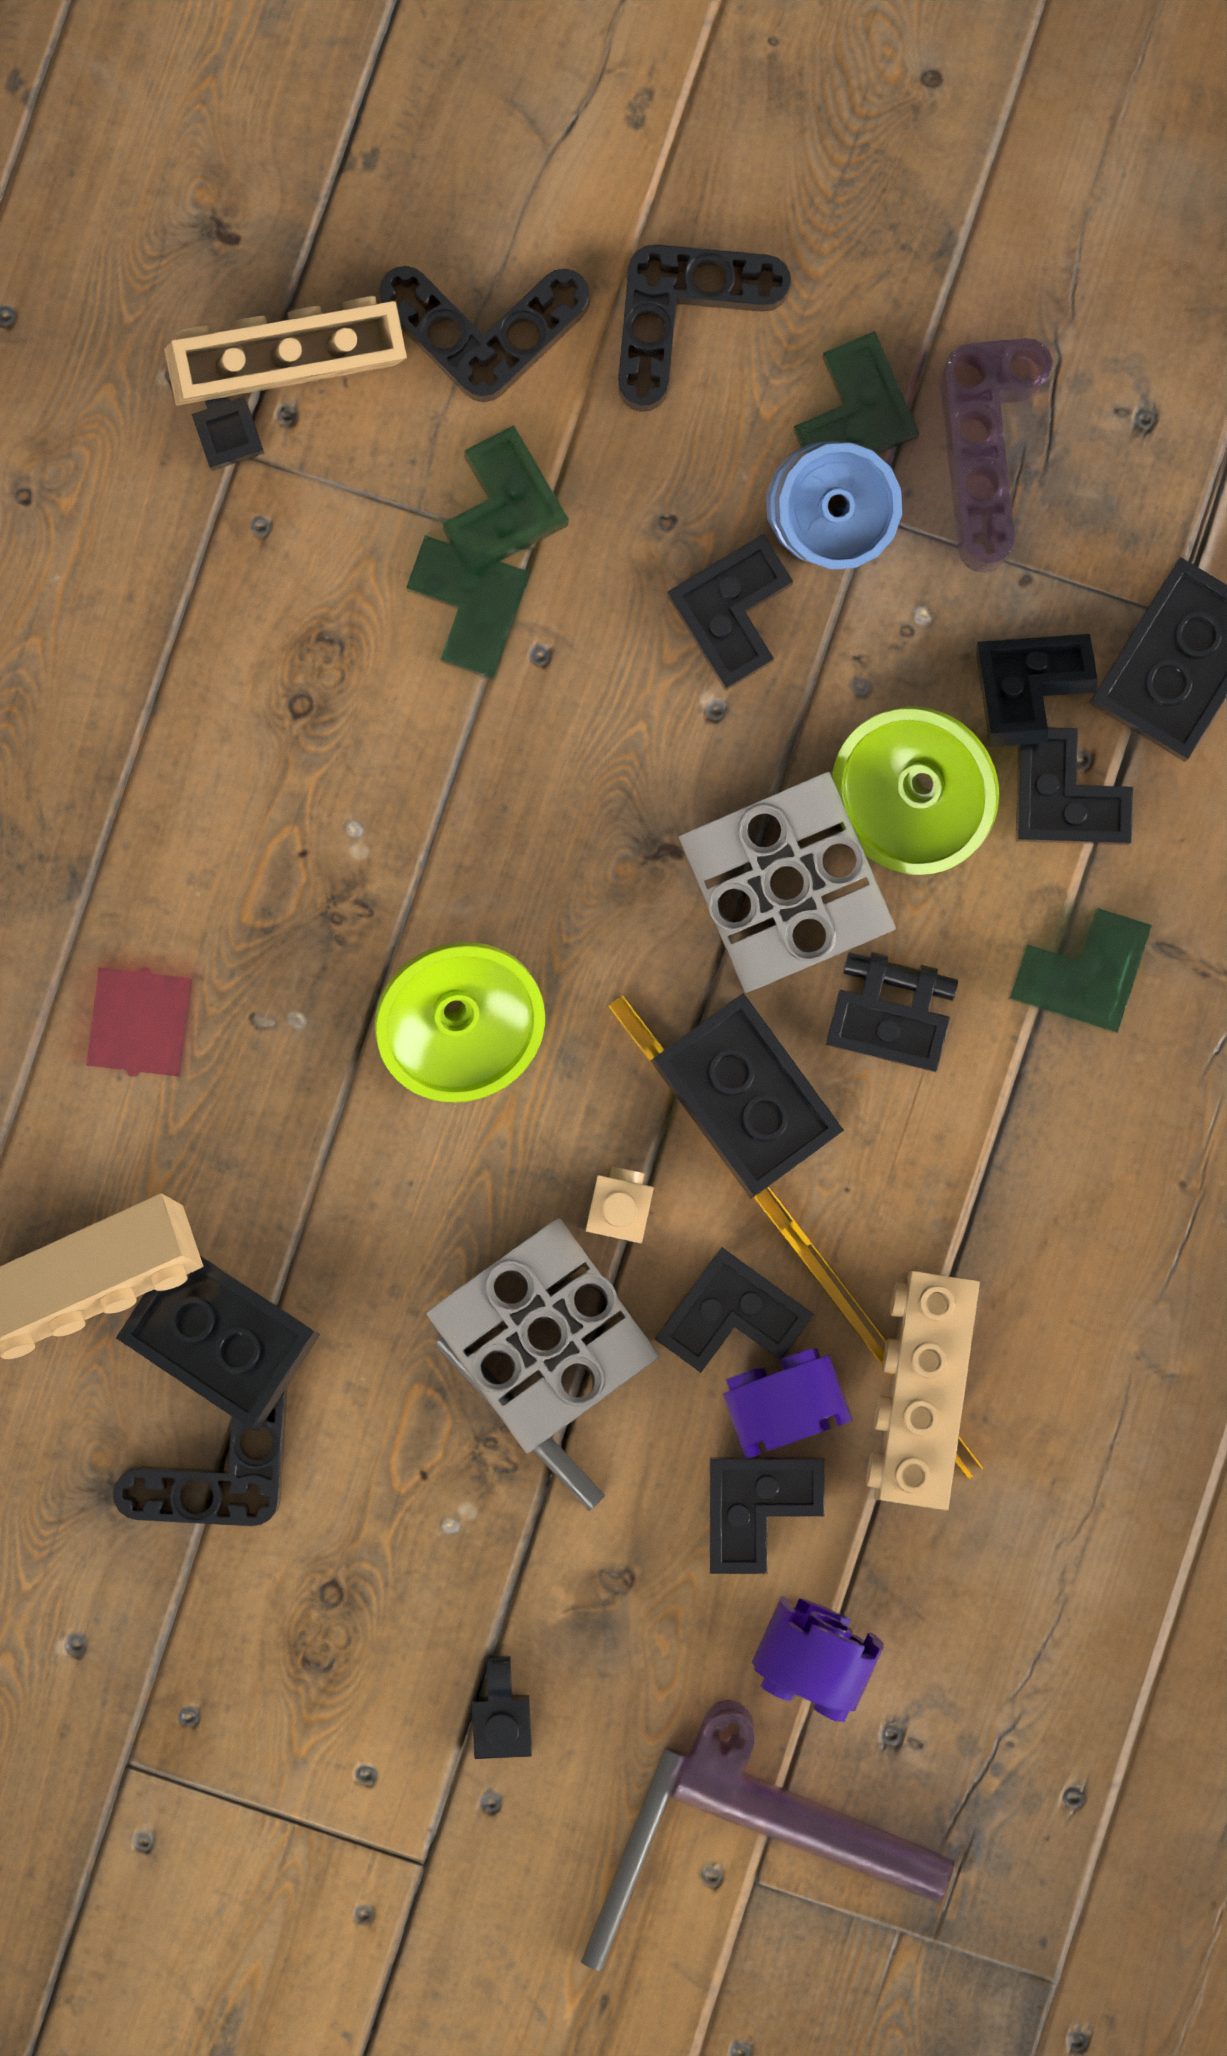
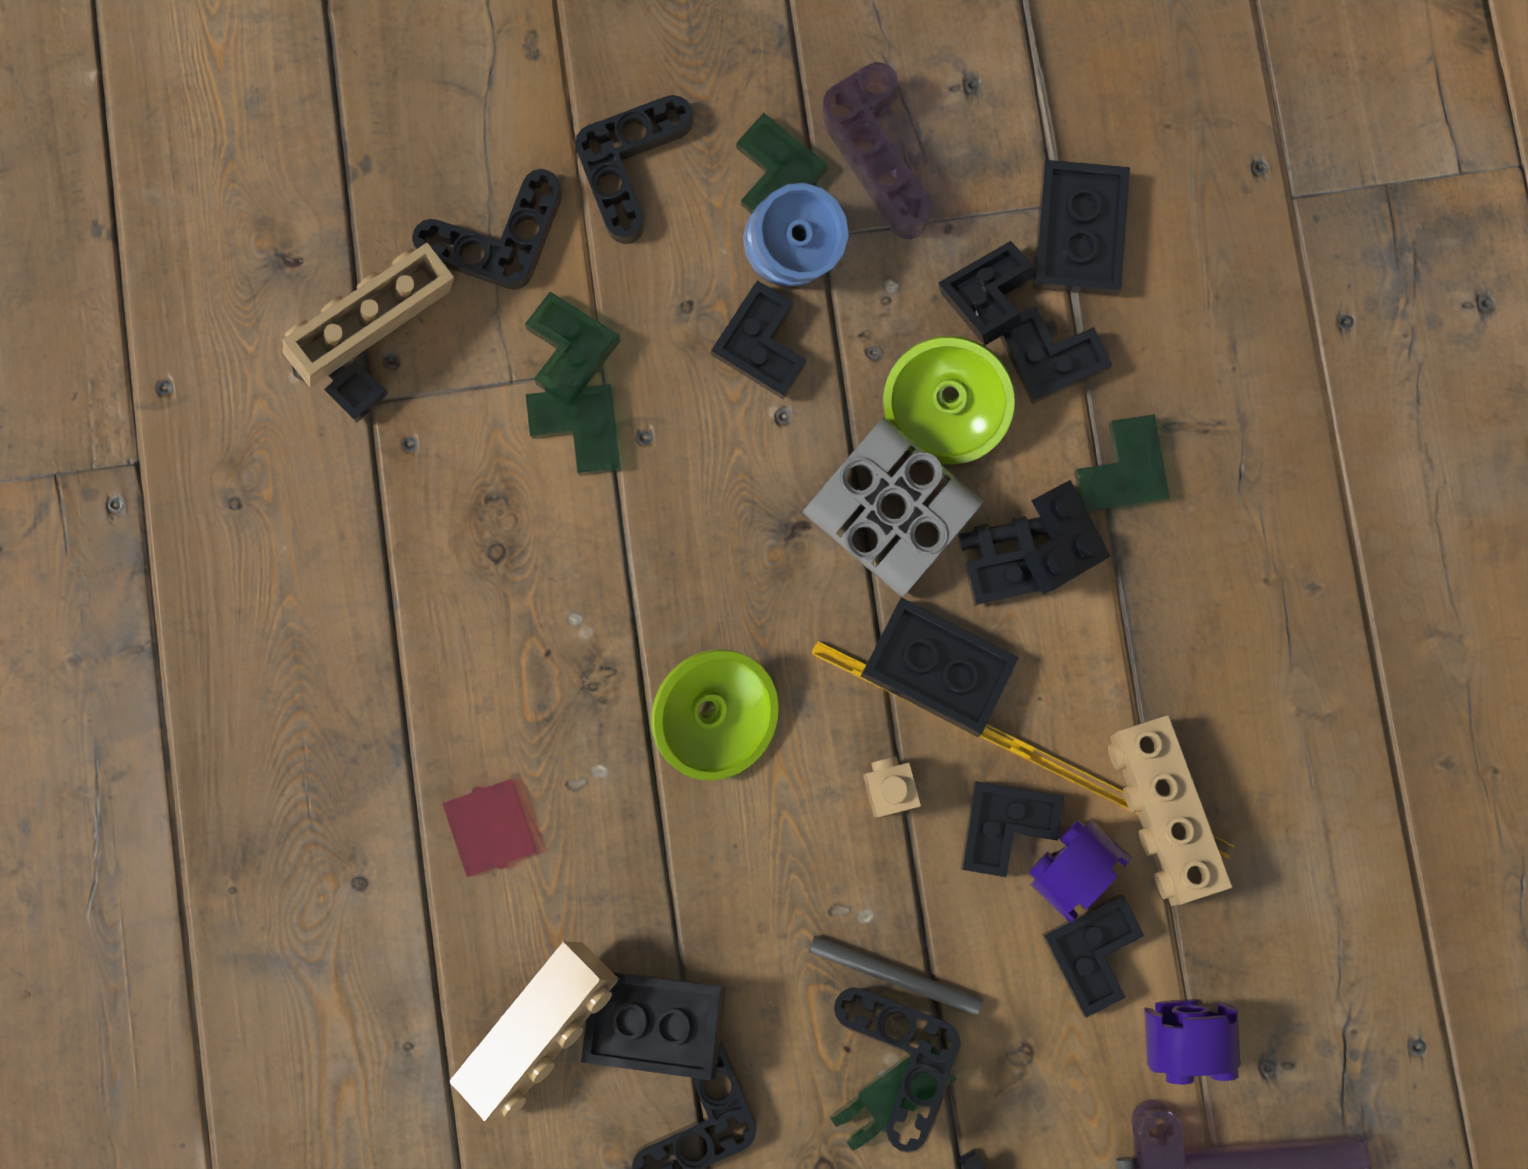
camera: 25 degrees left, 5 degrees down
(455, 1550) = (880, 1098): none -> clear green hinge
(498, 1528) = (921, 1061): none -> black beam
(541, 1265) = (938, 900): light grey connector -> none
(979, 1027) = (1073, 543): none -> black plate

